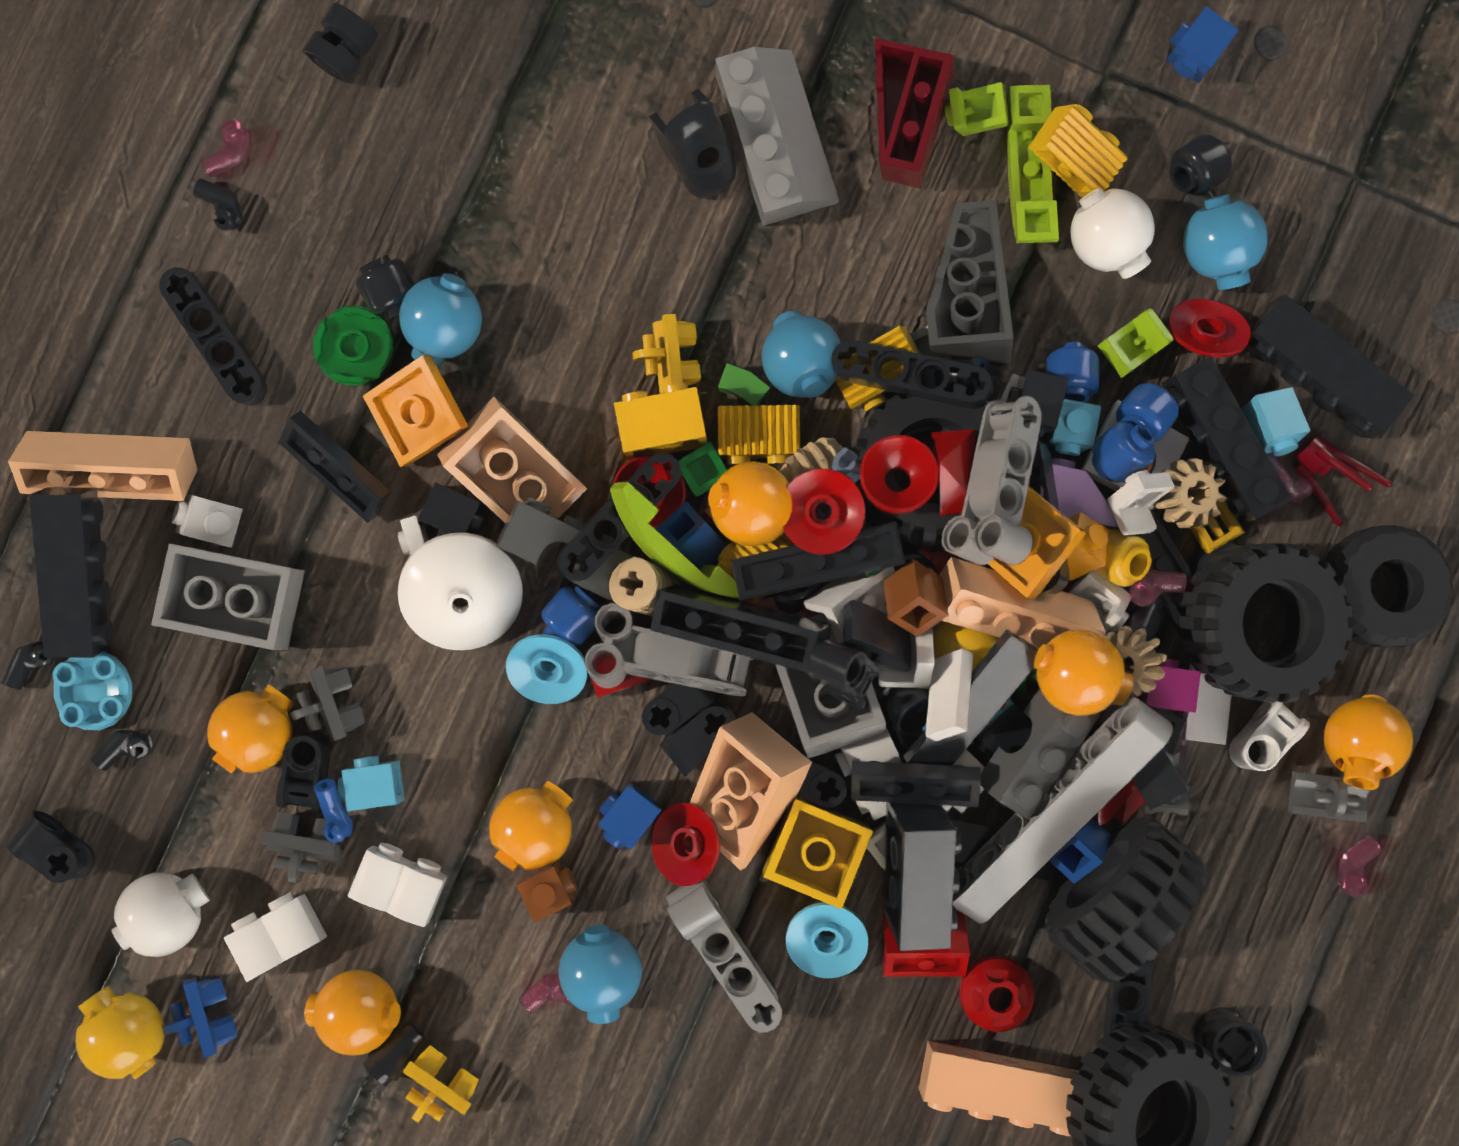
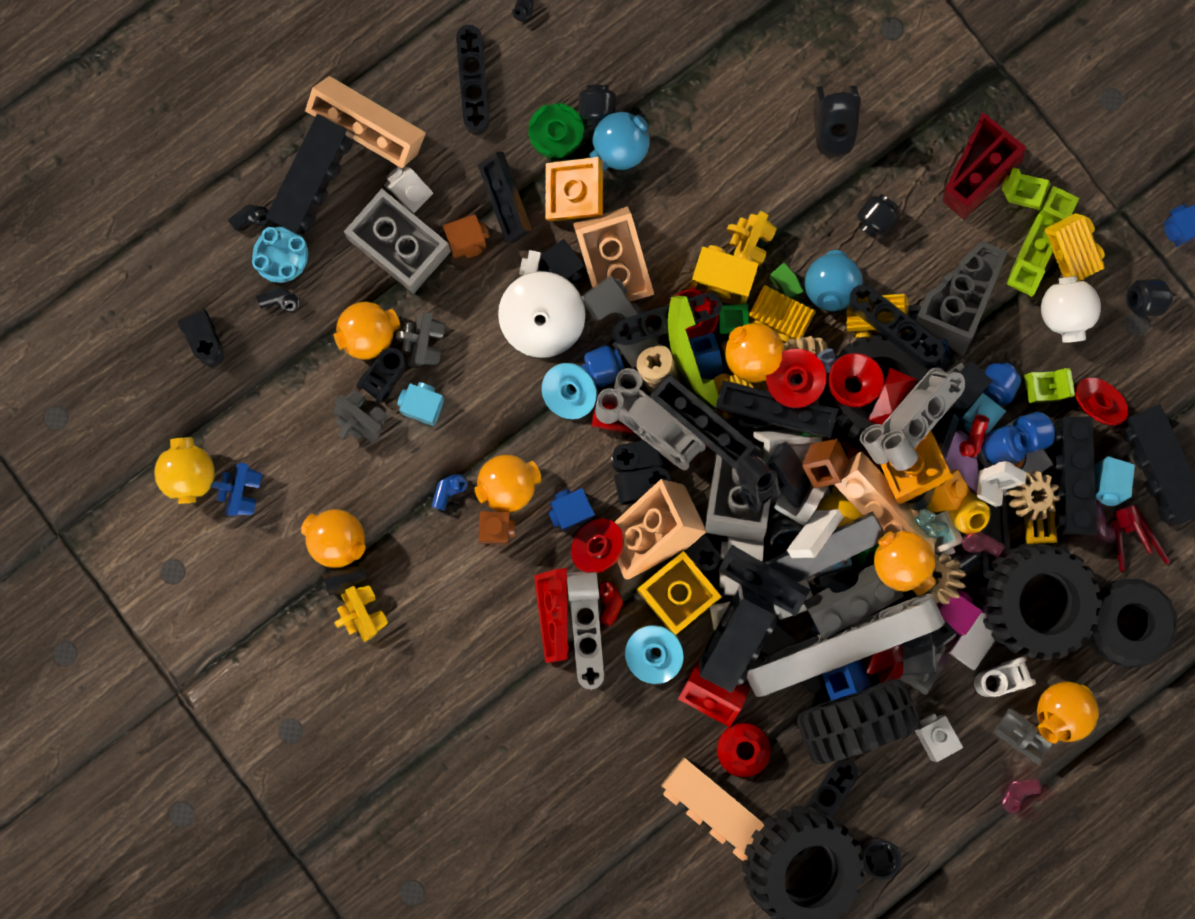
camera: 25 degrees right, 5 degrees down
(159, 913) = (247, 412): white brick -> none
(275, 936) = (310, 464): white brick -> none
(312, 543) = (466, 236): none -> dark orange brick
(335, 814) = (390, 409): blue arm -> none
(397, 884) = (404, 475): white brick -> none
(461, 870) = (446, 488): none -> blue arm
(544, 989) = (464, 592): clear pink arm -> none
(600, 973) = (502, 595): dark azure brick -> none
(673, 955) = (552, 608): none -> red wing
(740, 900) = (612, 602): none -> red arm
(775, 133) = (890, 138): light grey slope -> none
(813, 240) = (878, 216): none -> black head
(1080, 603) = (926, 524): none -> clear light blue arm
(1082, 464) = (973, 445): none -> red arm
(1225, 241) = (1140, 352): dark azure brick -> none
(1226, 853) = (938, 737): none -> white brick

